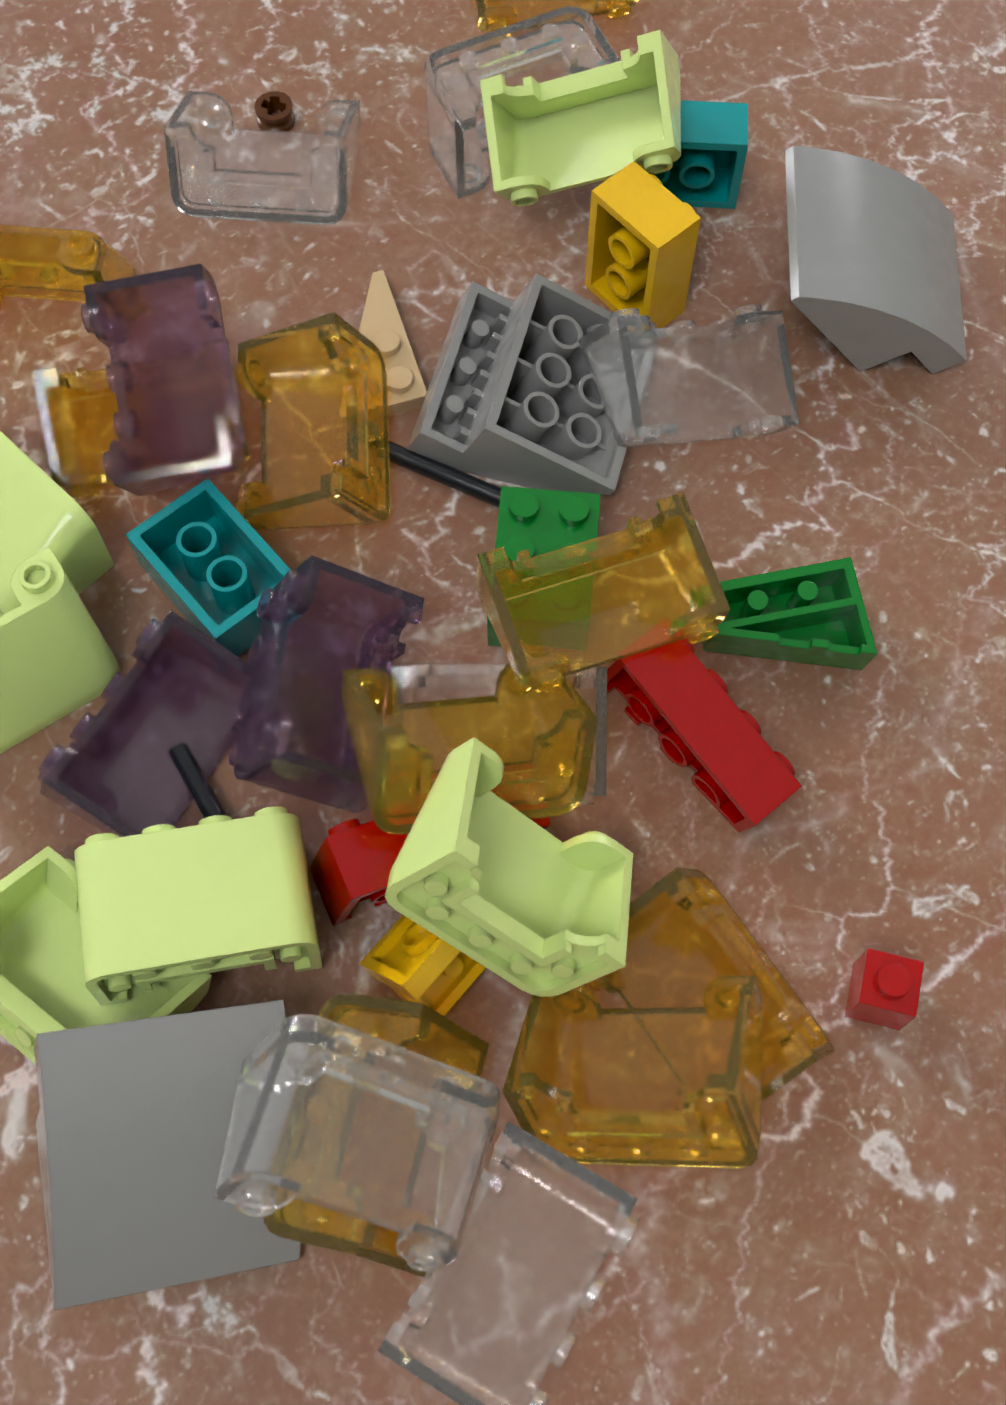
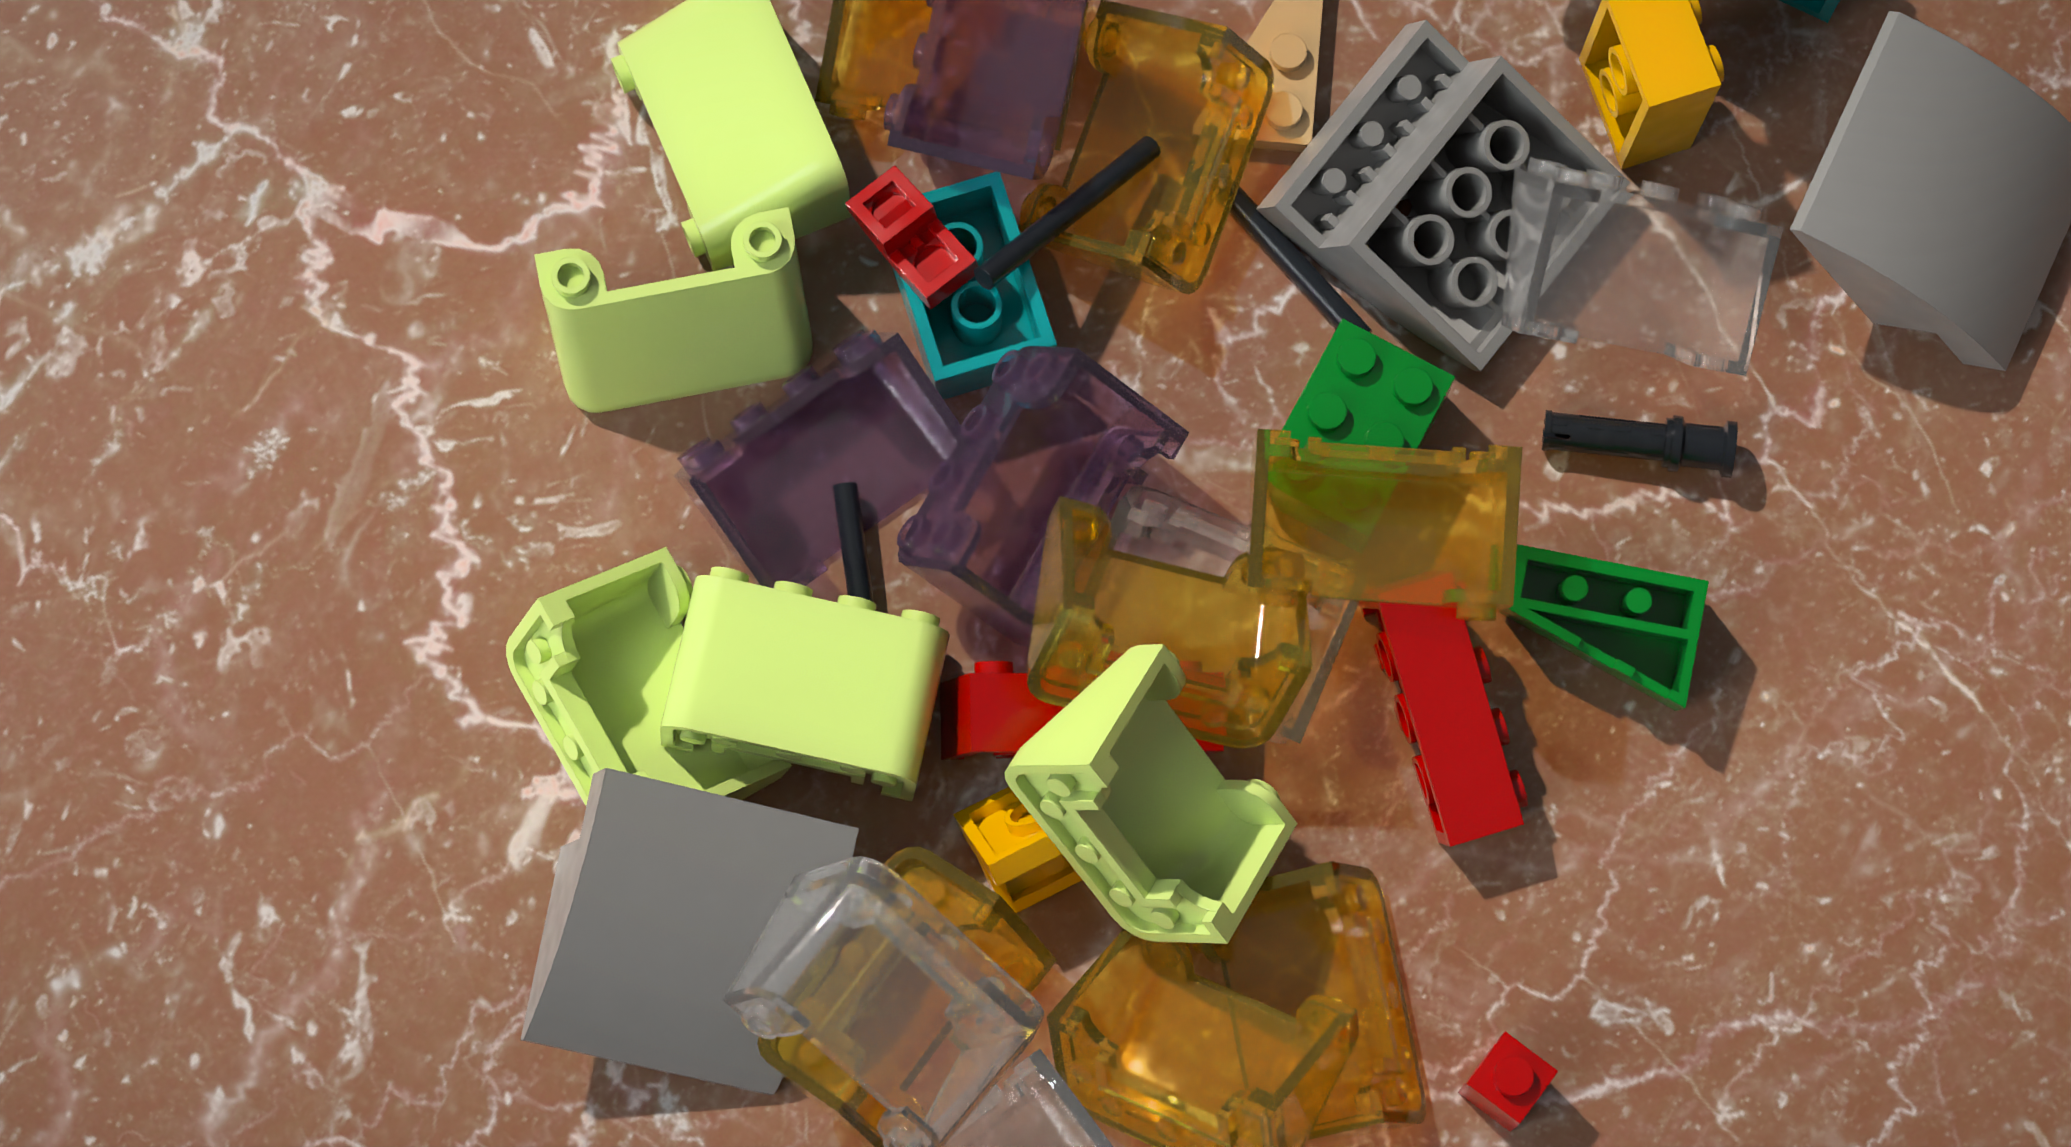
camera: 20 degrees right, 10 degrees up
(156, 543) = (912, 237): none -> red slope
(267, 491) = (1067, 213): none -> black bar
(768, 491) = (1672, 443): none -> black pin

